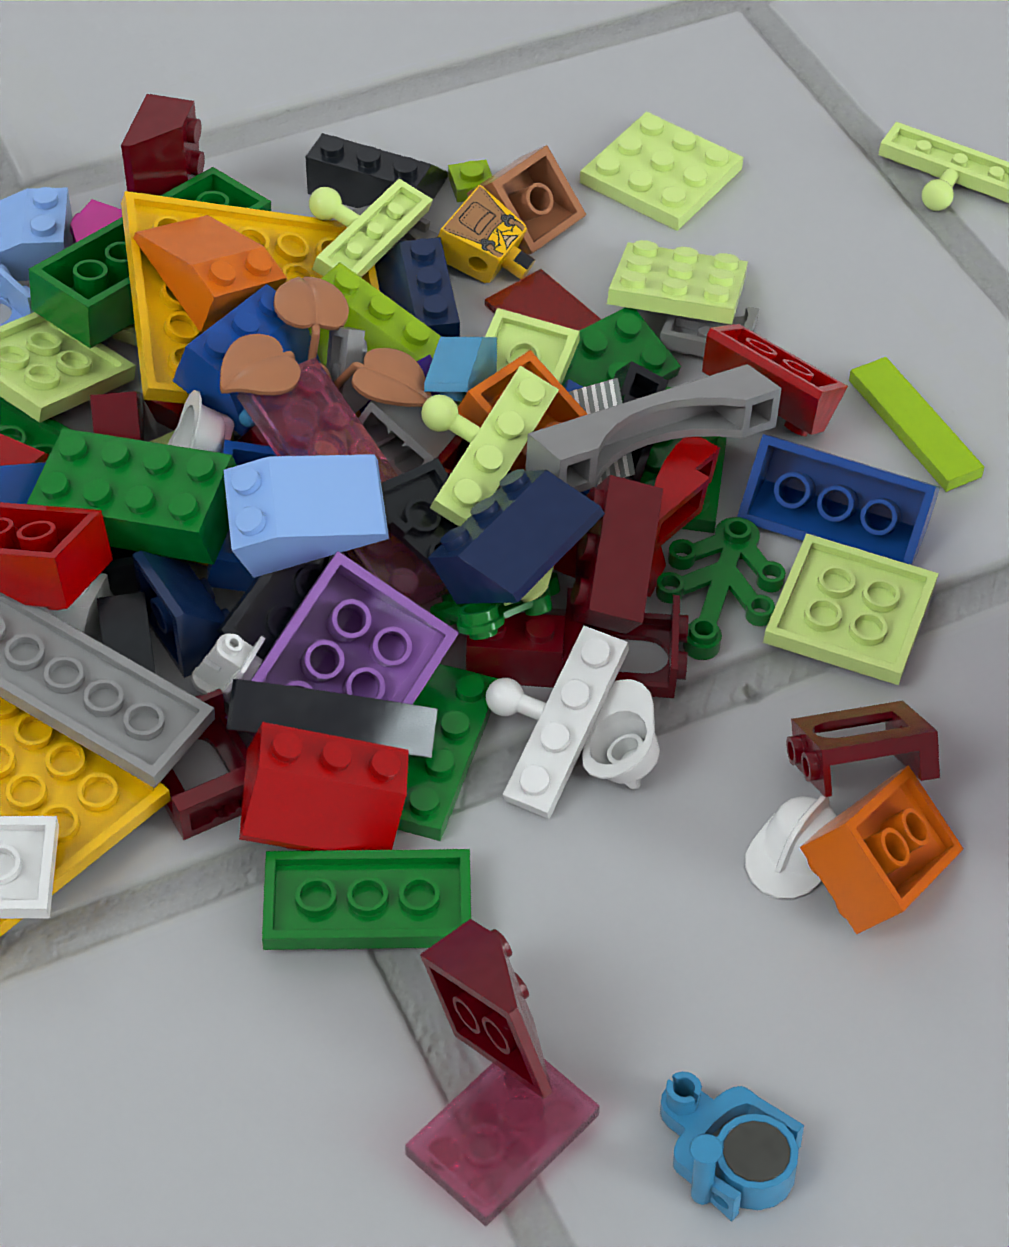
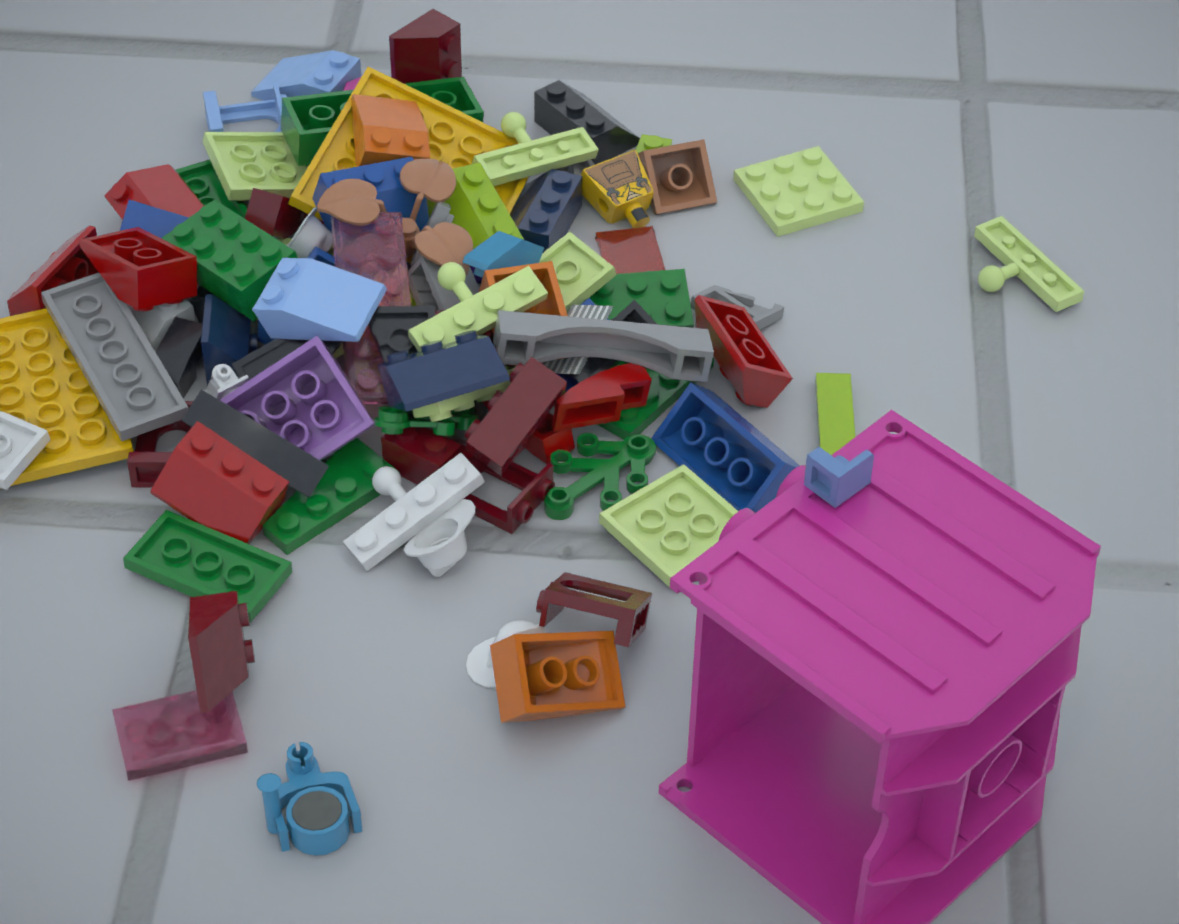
camera: 30 degrees right, 5 degrees down
(678, 282) = (735, 267): yellowish green plate -> none

